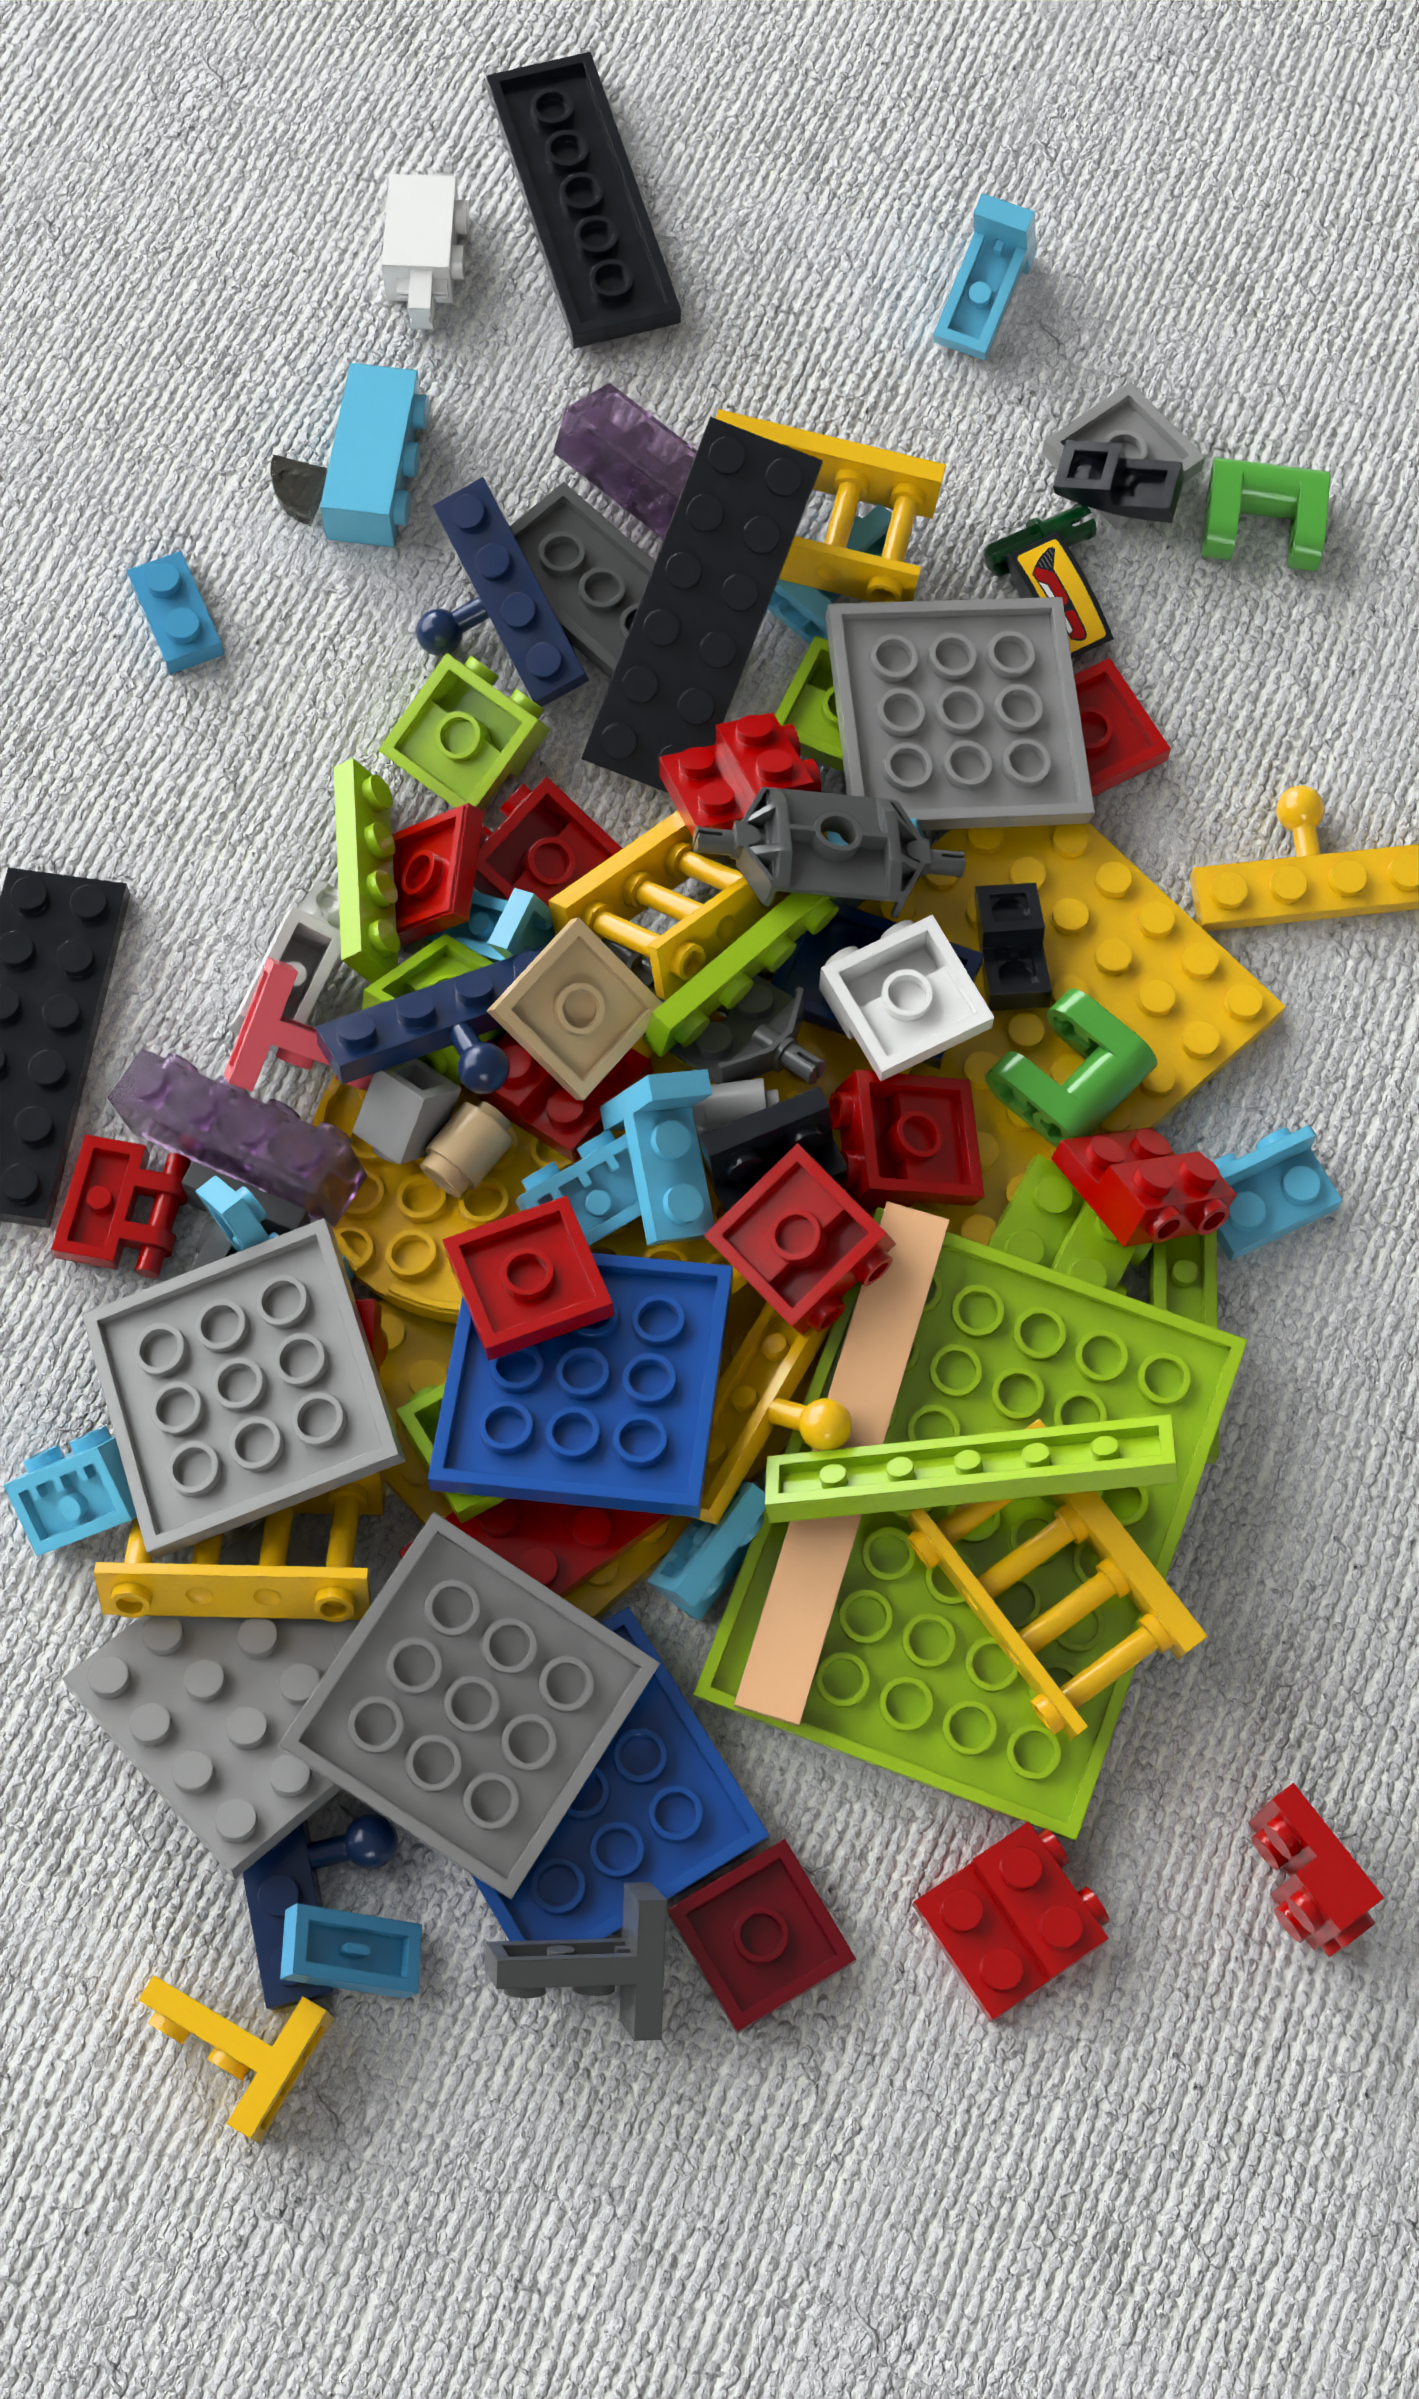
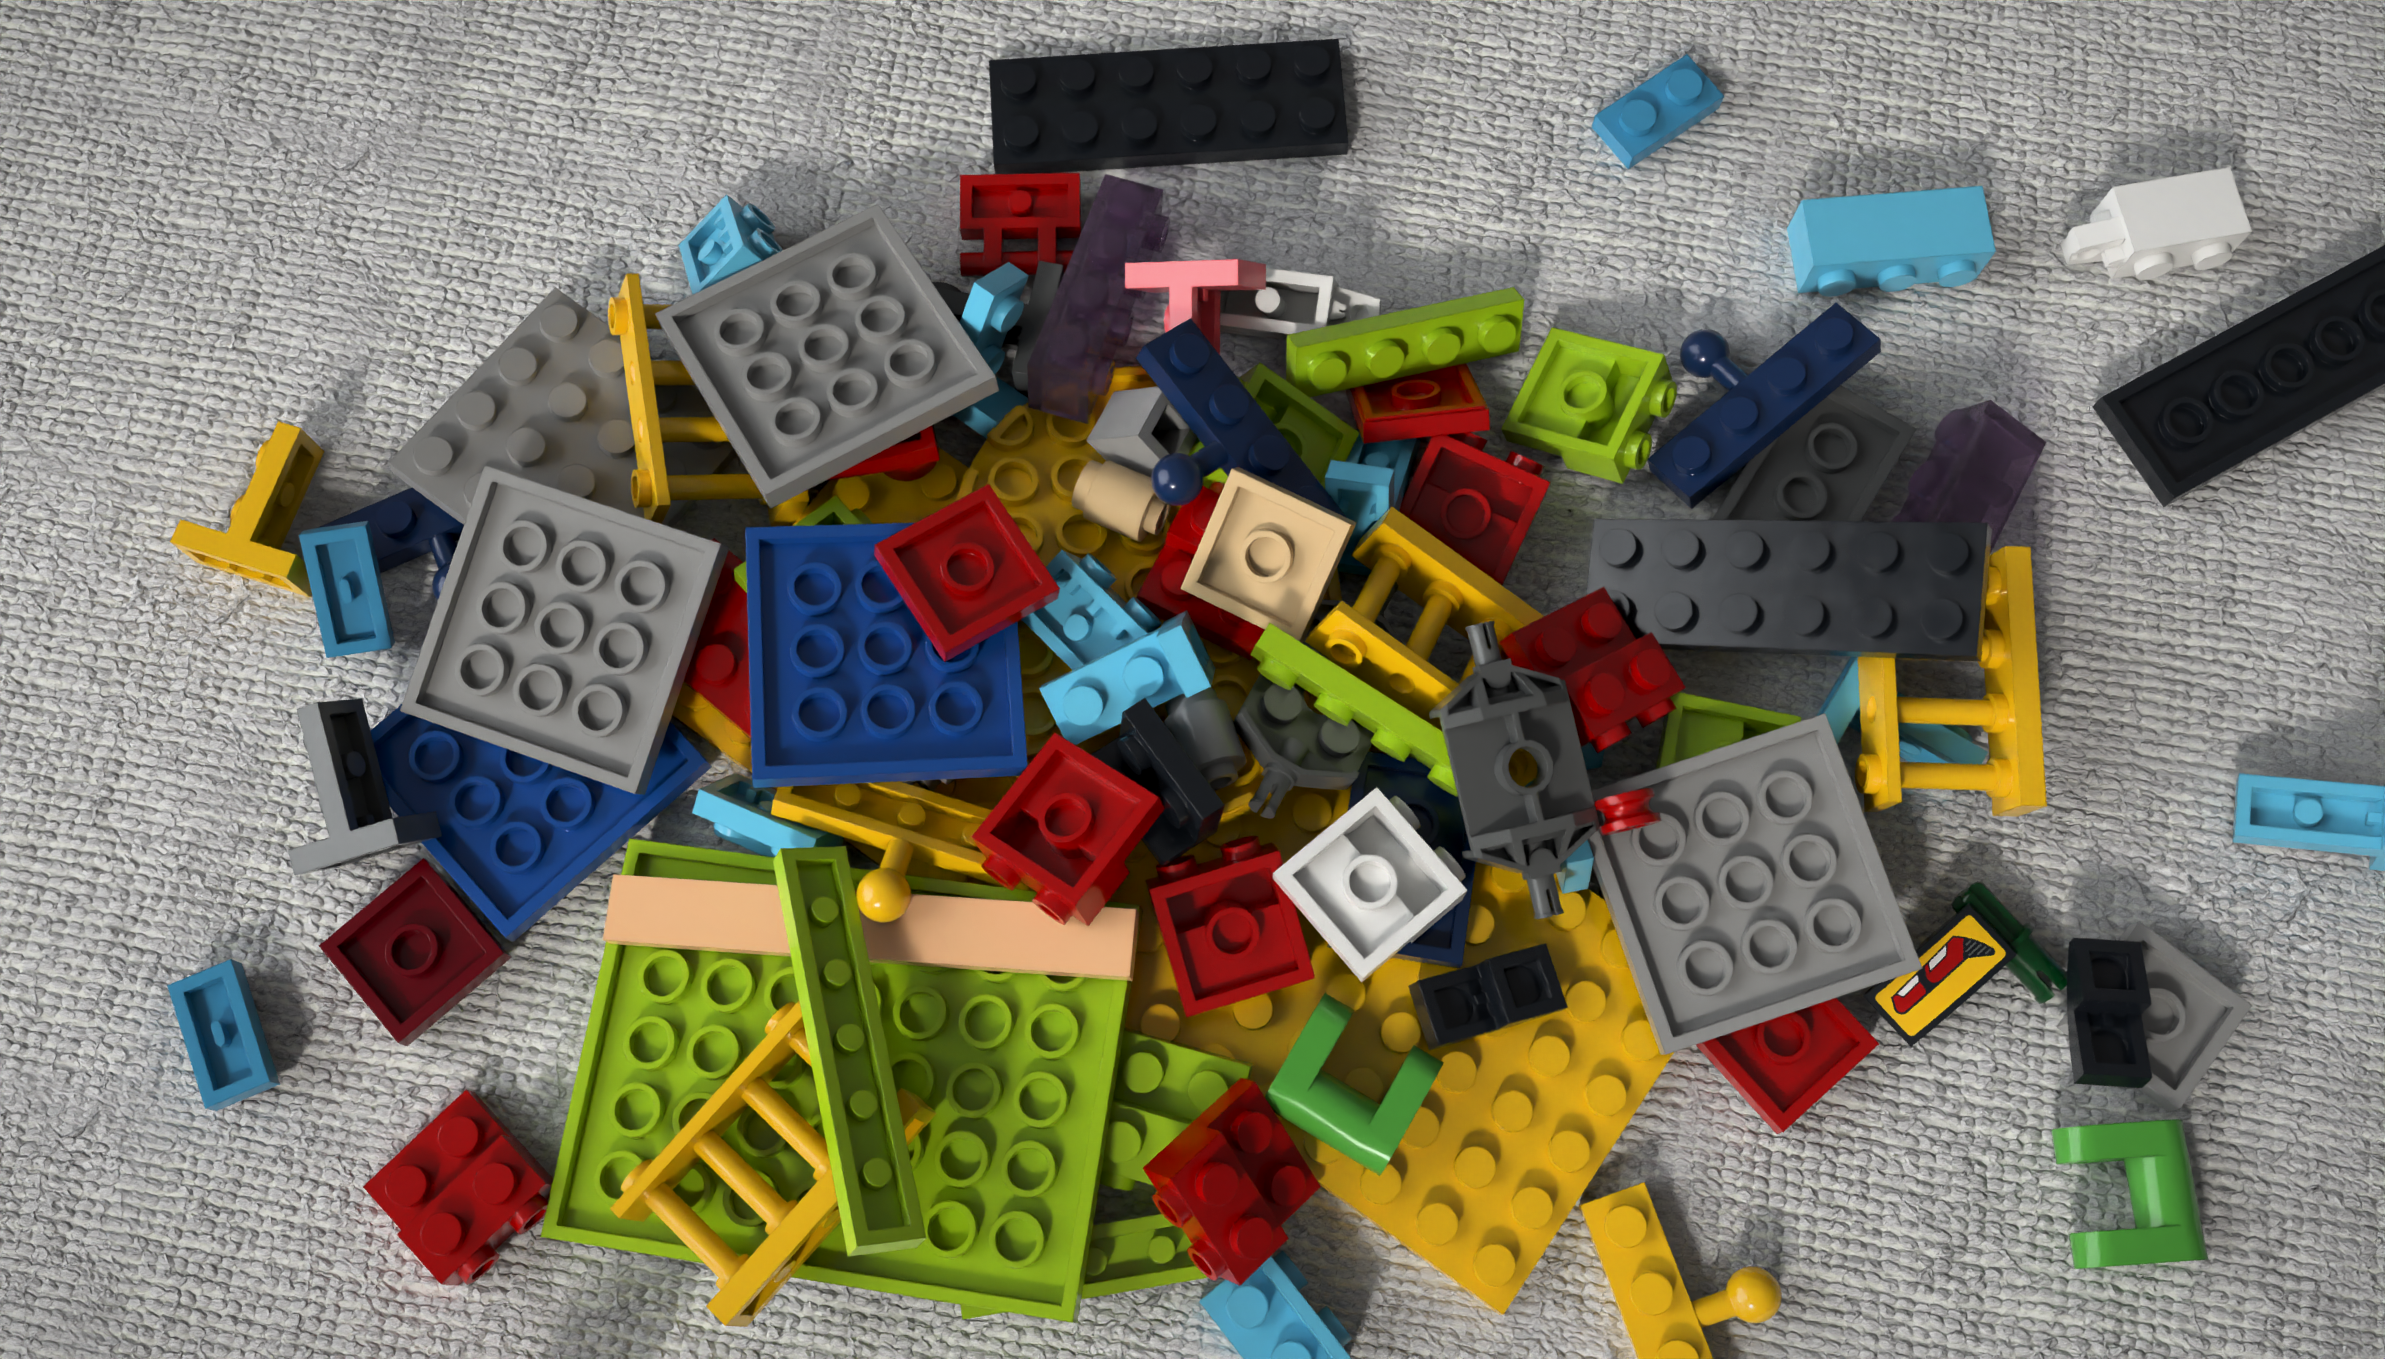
camera: 80 degrees right, 5 degrees up
(298, 487) = (1836, 178): clear smoke tile -> none
(808, 2151) = (223, 1035): none -> dark azure plate
(886, 774) = (1627, 811): none -> red bush

